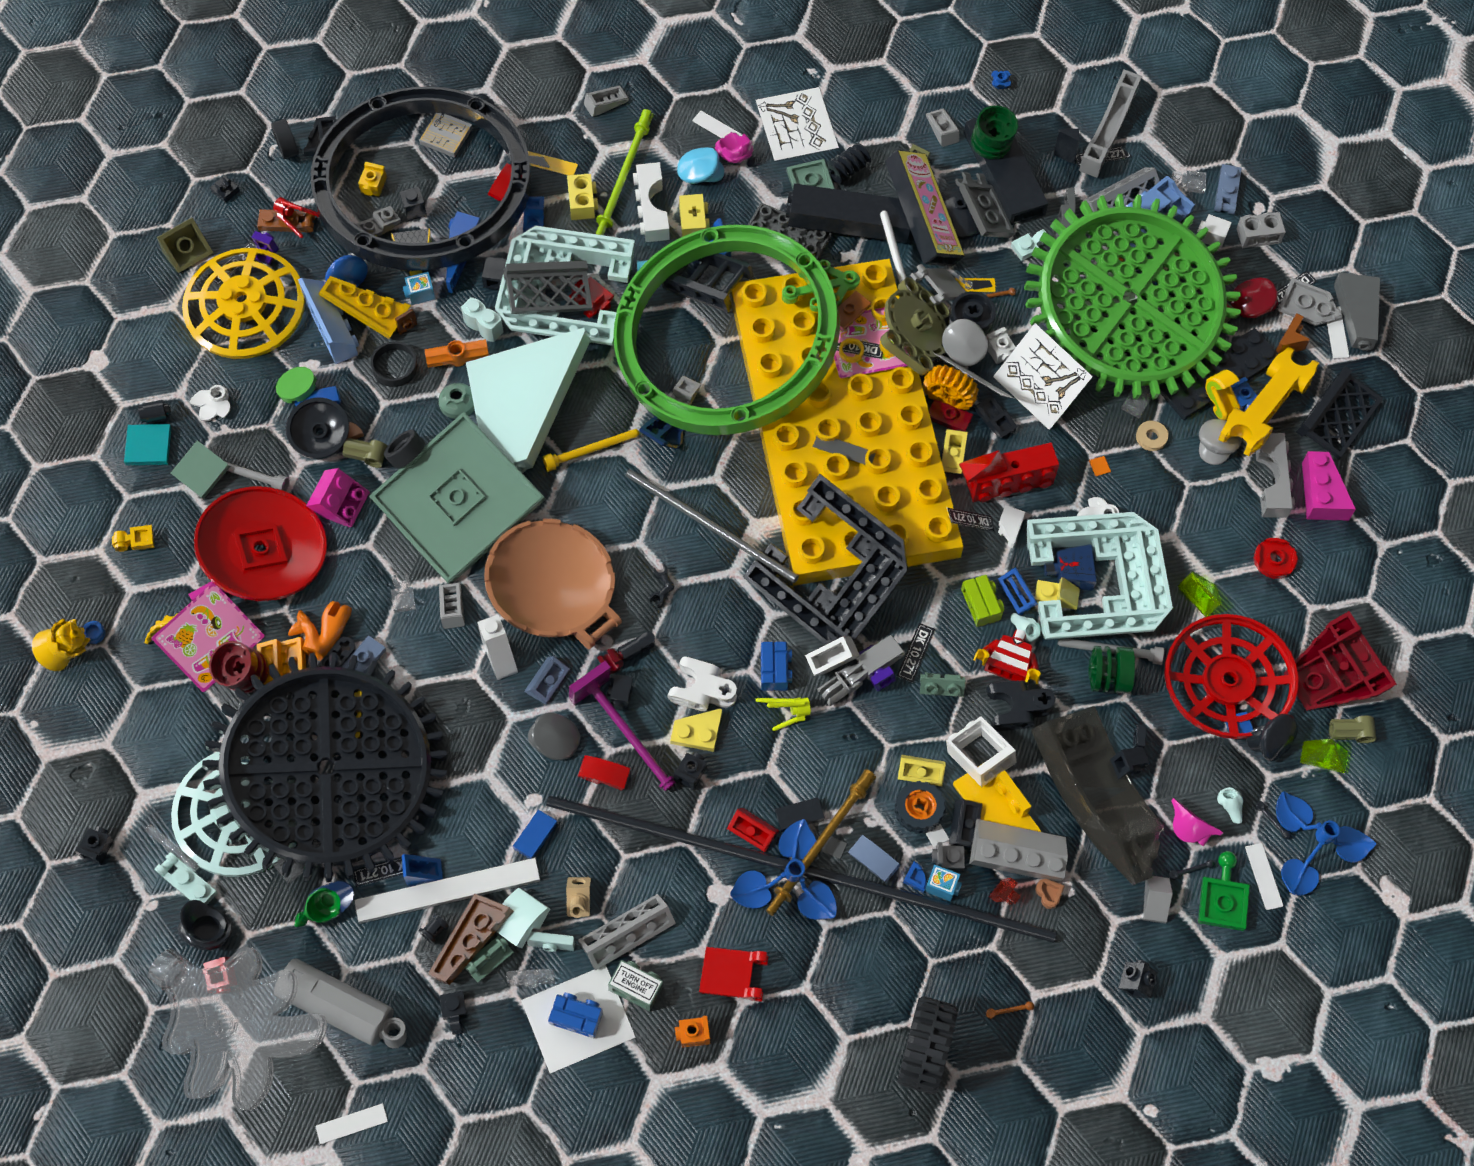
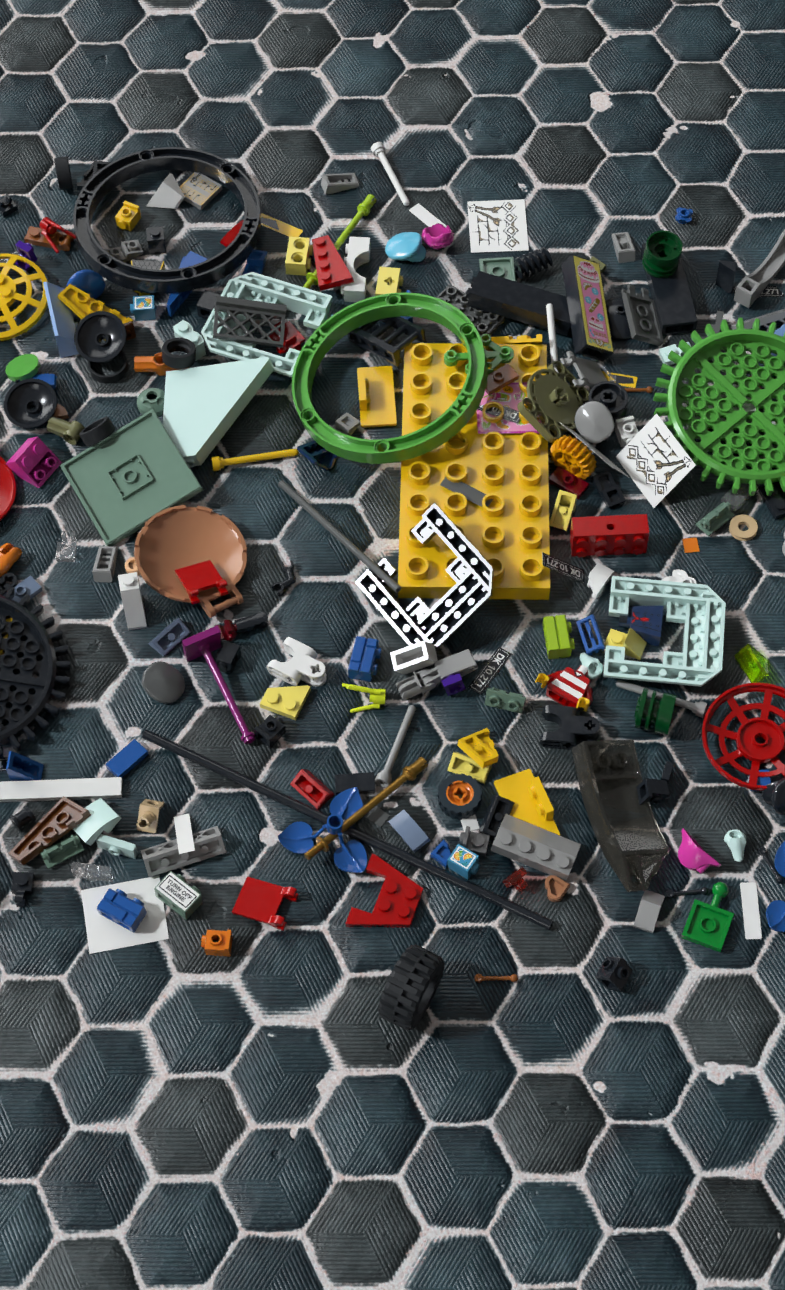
camera: 15 degrees right, 5 degrees down
(370, 325) = (93, 330): none -> black dish
(412, 145) = (168, 194): none -> white slope
(476, 350) = (179, 361): none -> black tyre
(483, 603) = (130, 566): none -> light nougat tile
(567, 605) = (200, 578): none -> red flag
(603, 771) = (197, 718): red slope -> none
(621, 202) = (329, 264): none -> wing
(624, 912) = (184, 833): none -> white sticker
(641, 54) = (379, 150): none -> white piece
(711, 351) = (376, 396): none -> yellow bracket
(831, 802) = (384, 778): none -> light grey piece
(859, 258) = (522, 339): none -> yellow wing
(878, 943) = (395, 902): none -> red wing
(930, 747) = (479, 748): none -> yellow wing
(983, 466) = (581, 523): red slope -> none
(993, 766) = (523, 775): white window -> none
(1120, 430) = (715, 518): none -> sand green hinge

